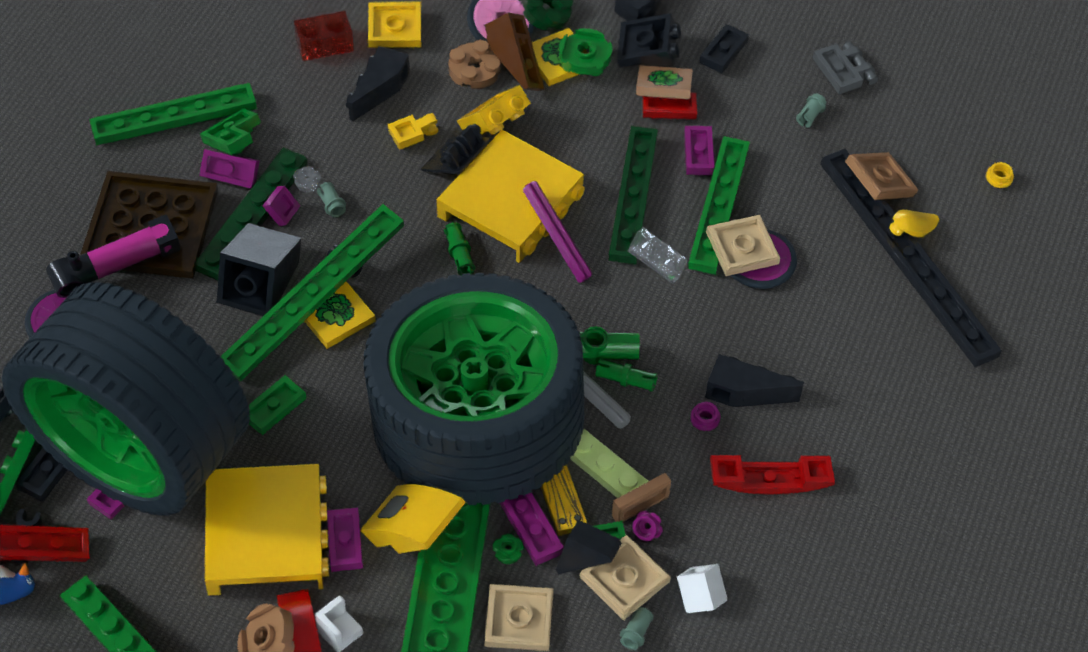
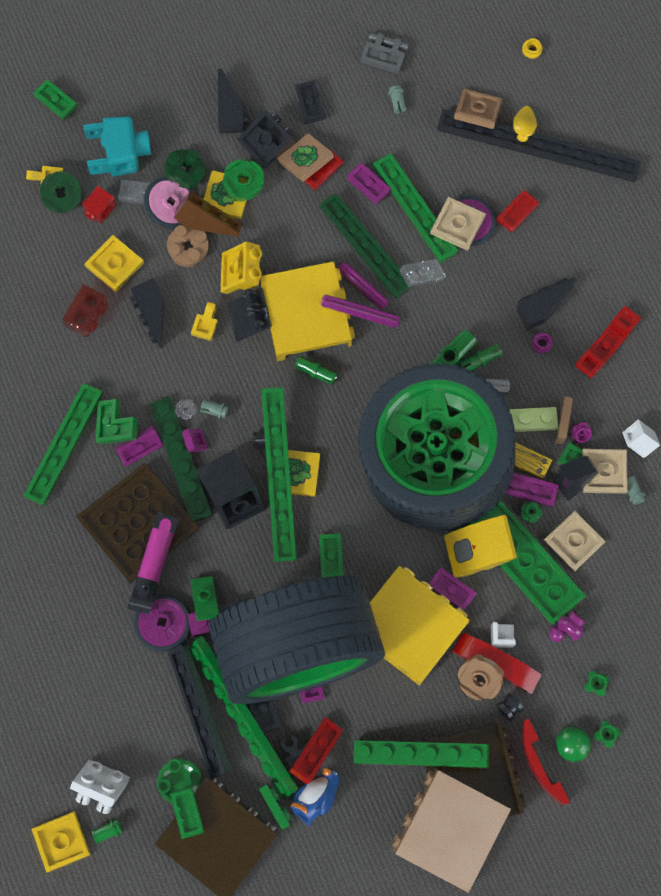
camera: 45 degrees left, 20 degrees up
(591, 224) = (363, 285): none -> magenta axle
(818, 289) = (517, 211): none -> red plate

